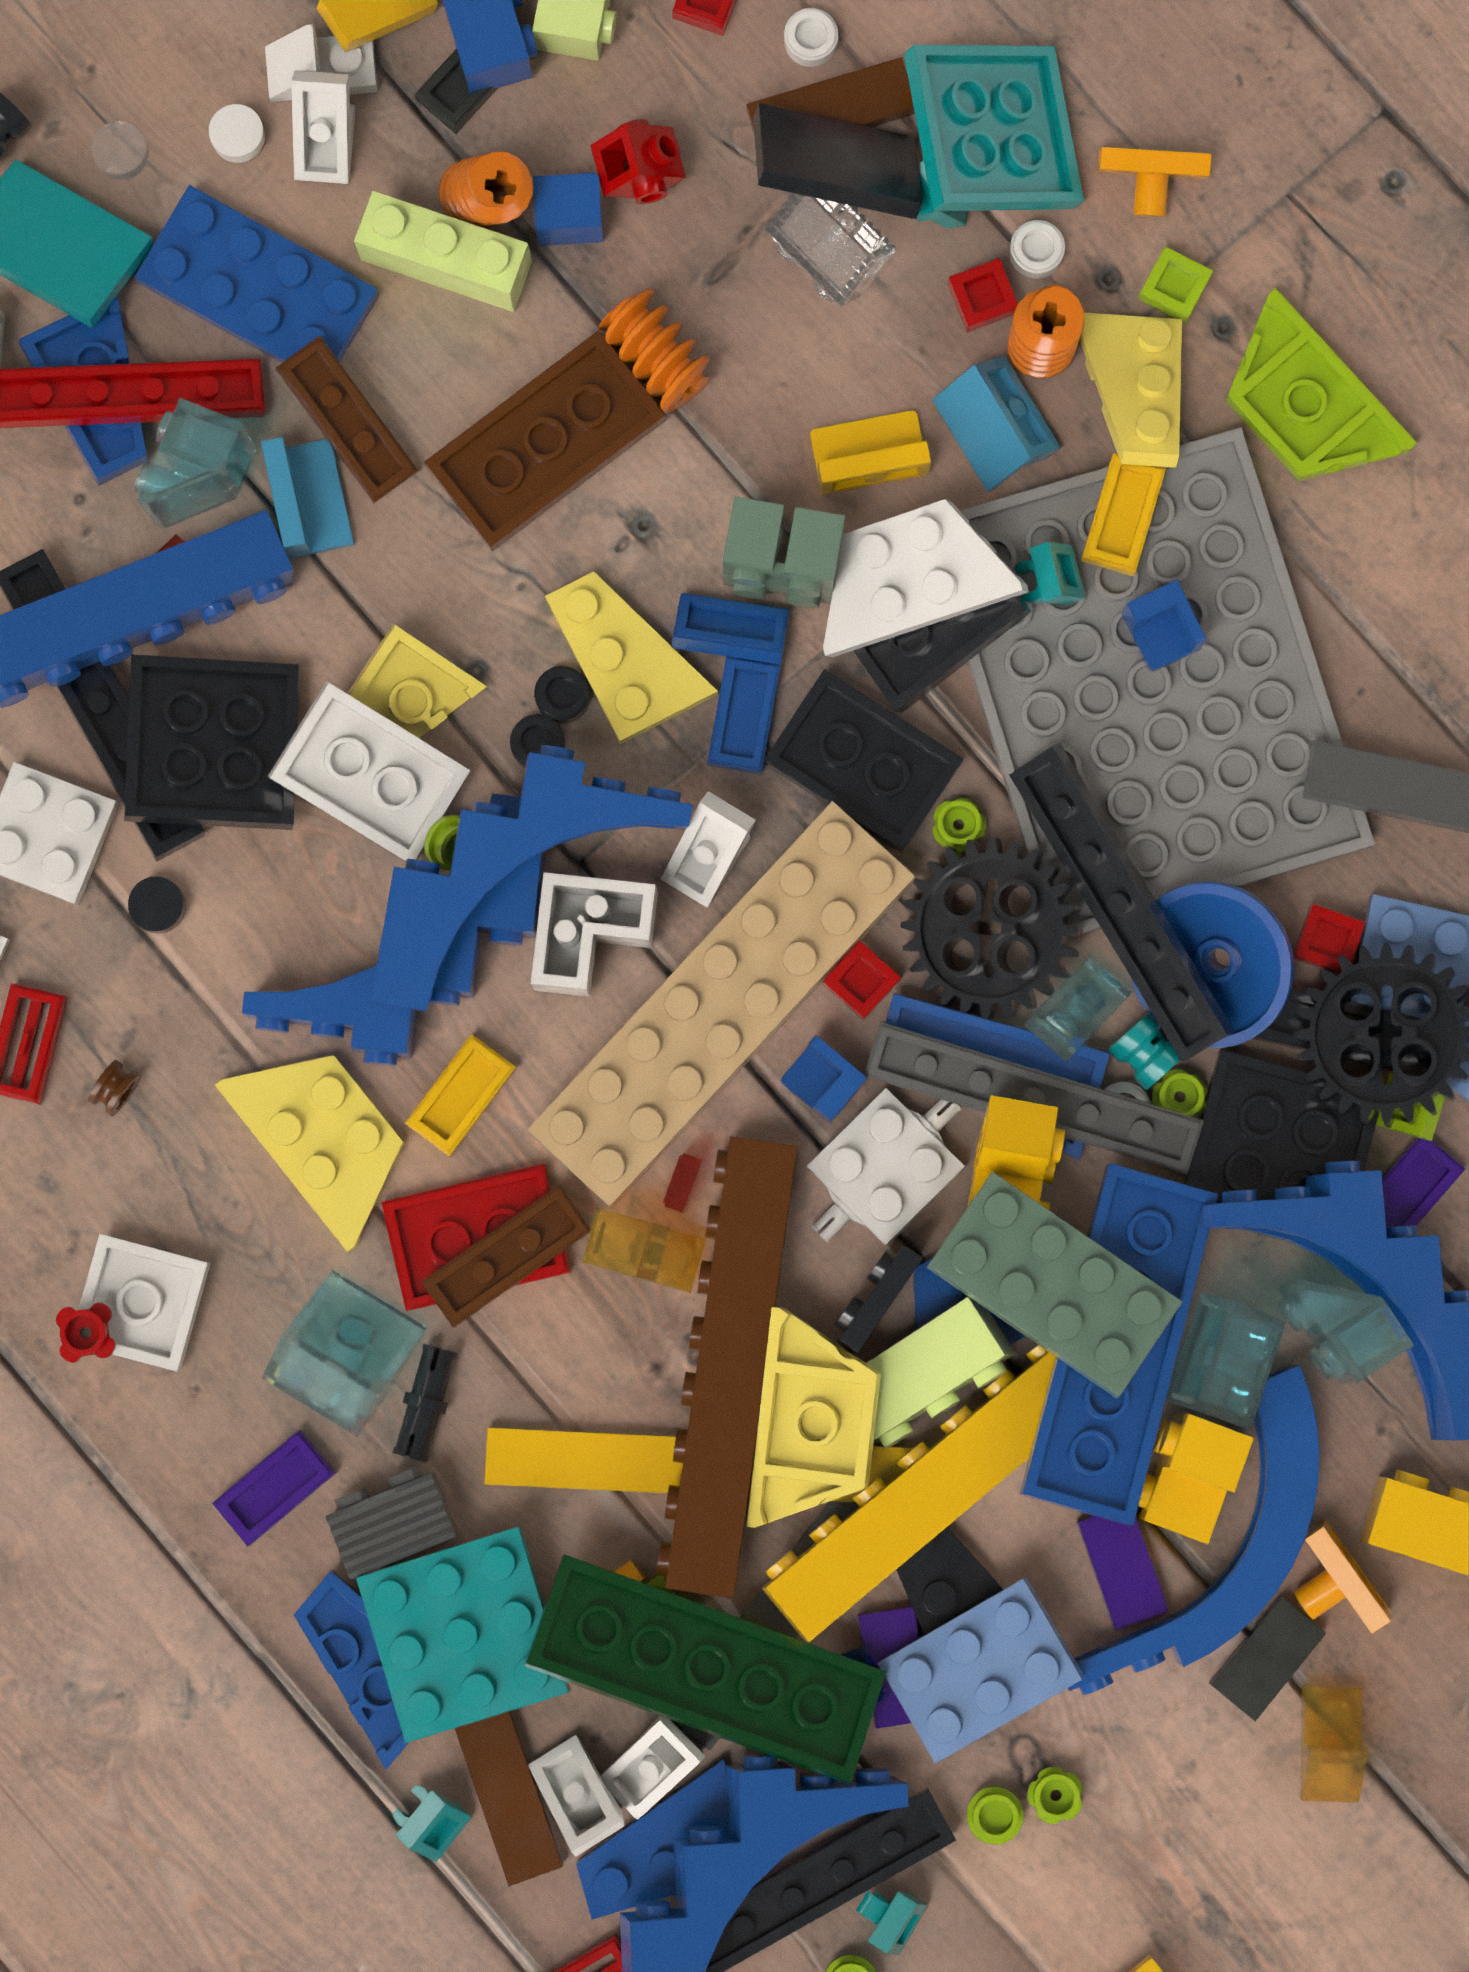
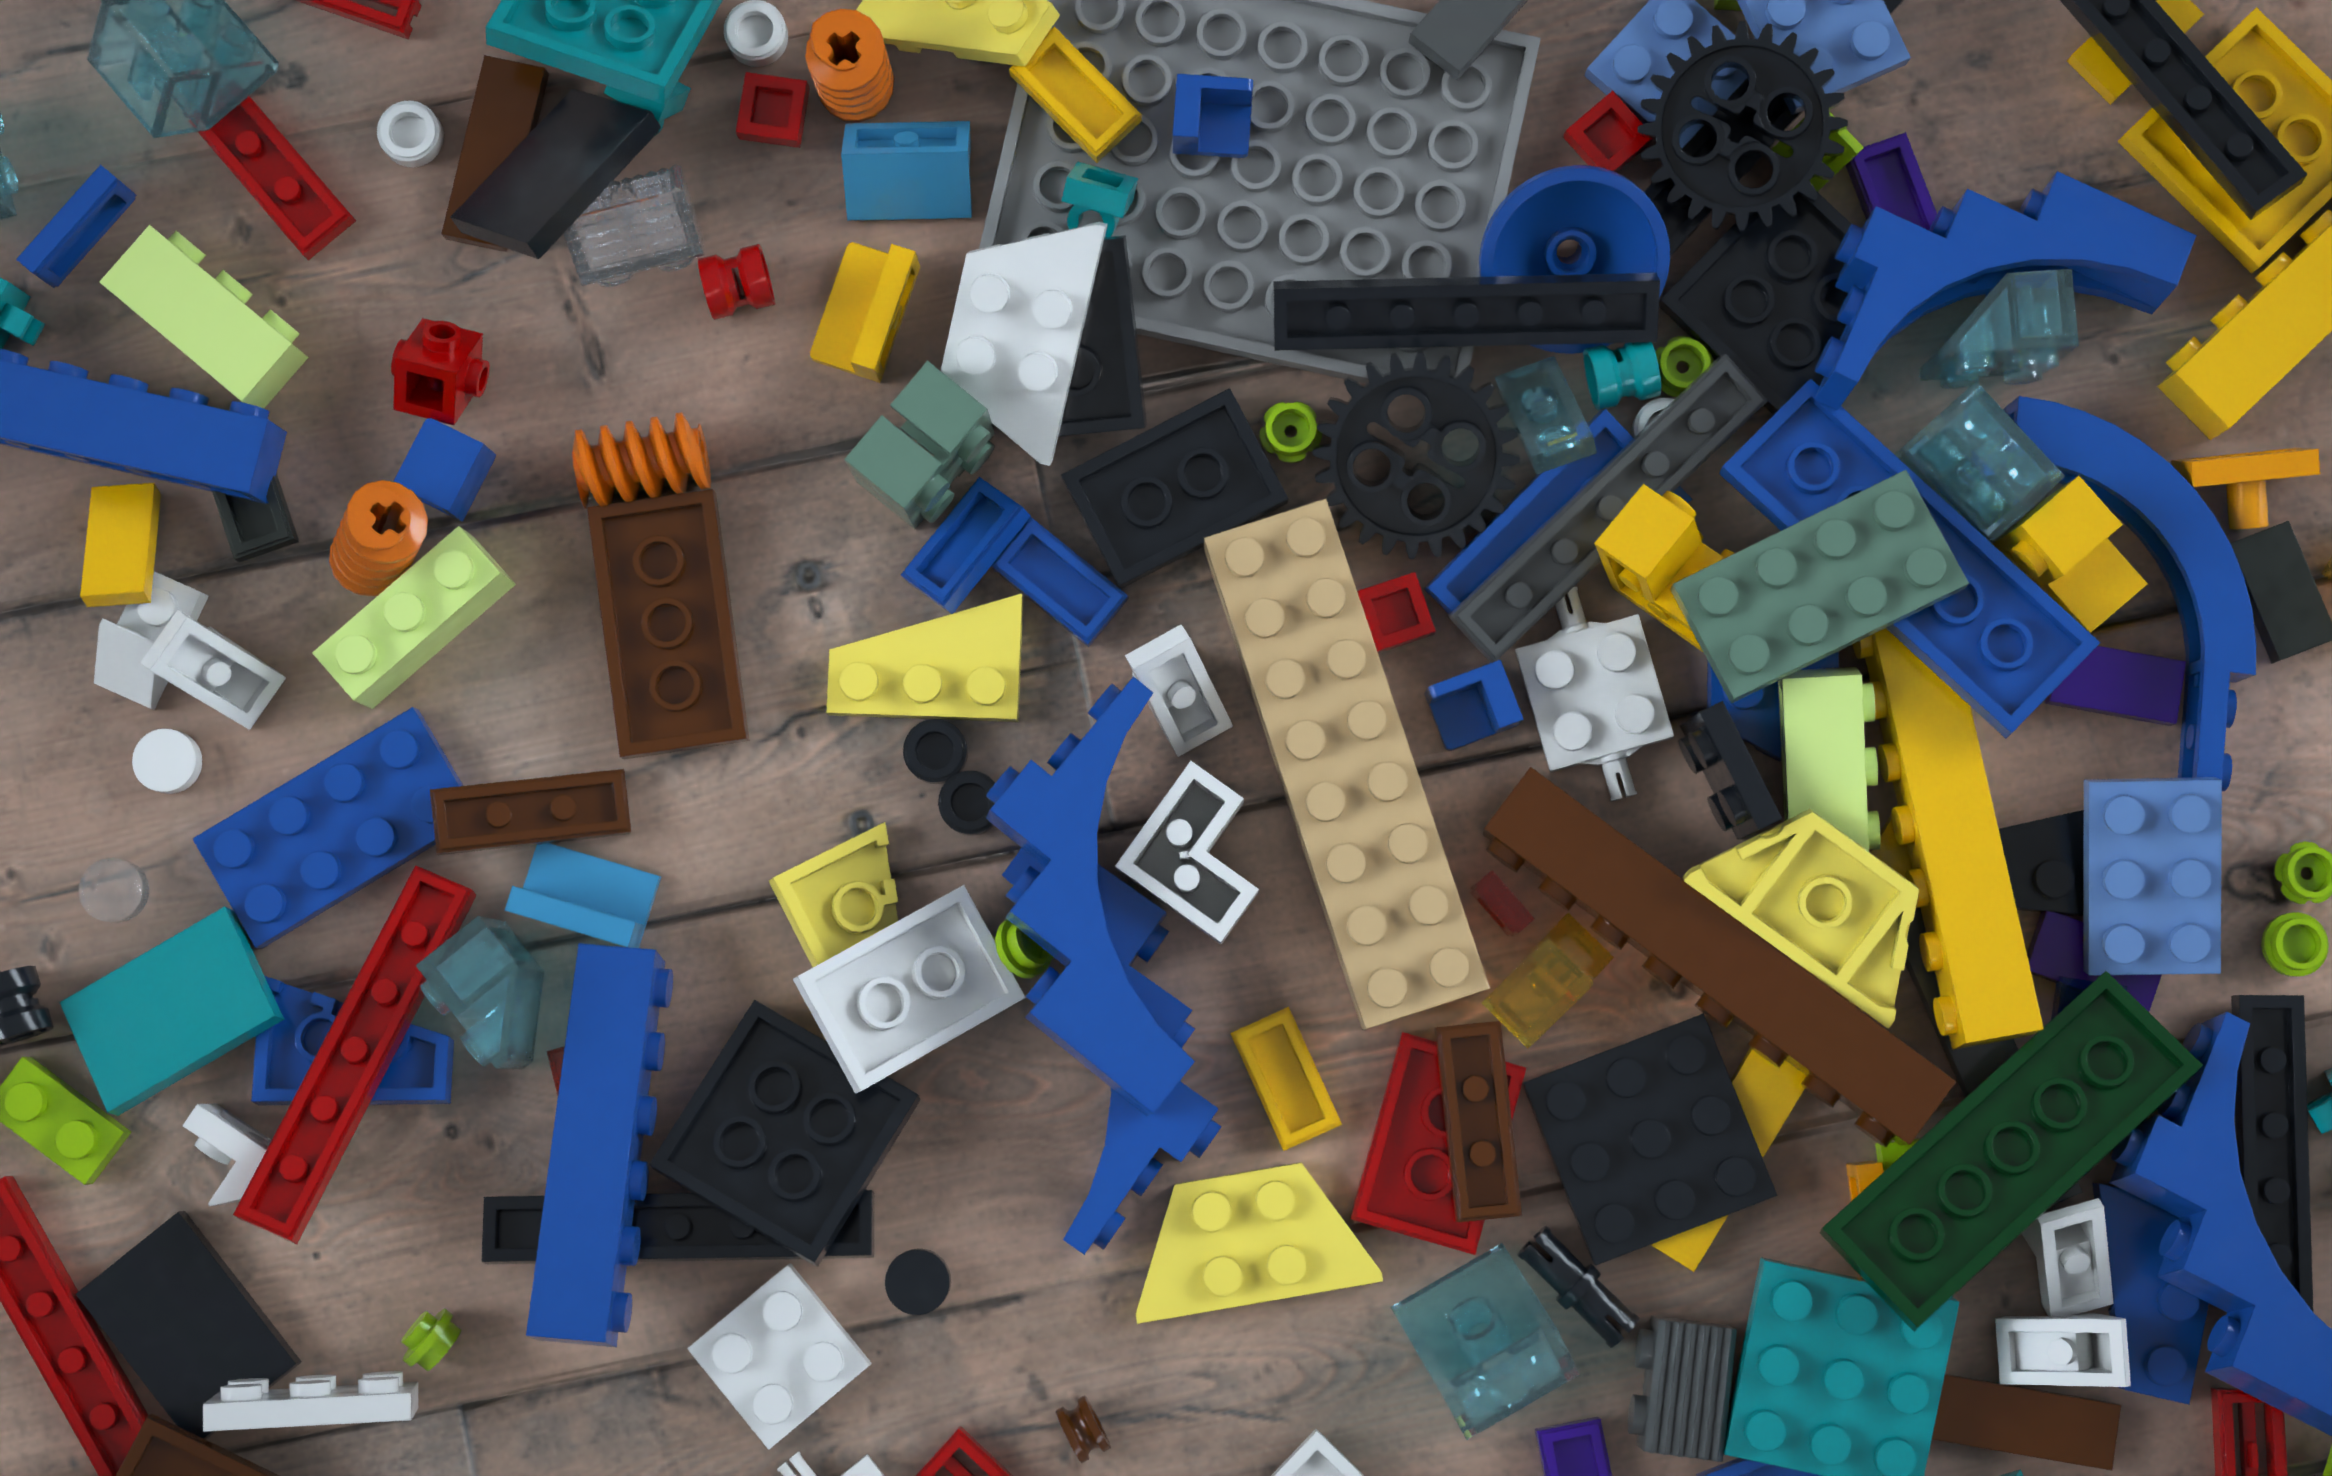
camera: 60 degrees left, 0 degrees up
(566, 1395) = (1649, 1139): none -> black plate
(834, 343) = (722, 284): none -> red wheel

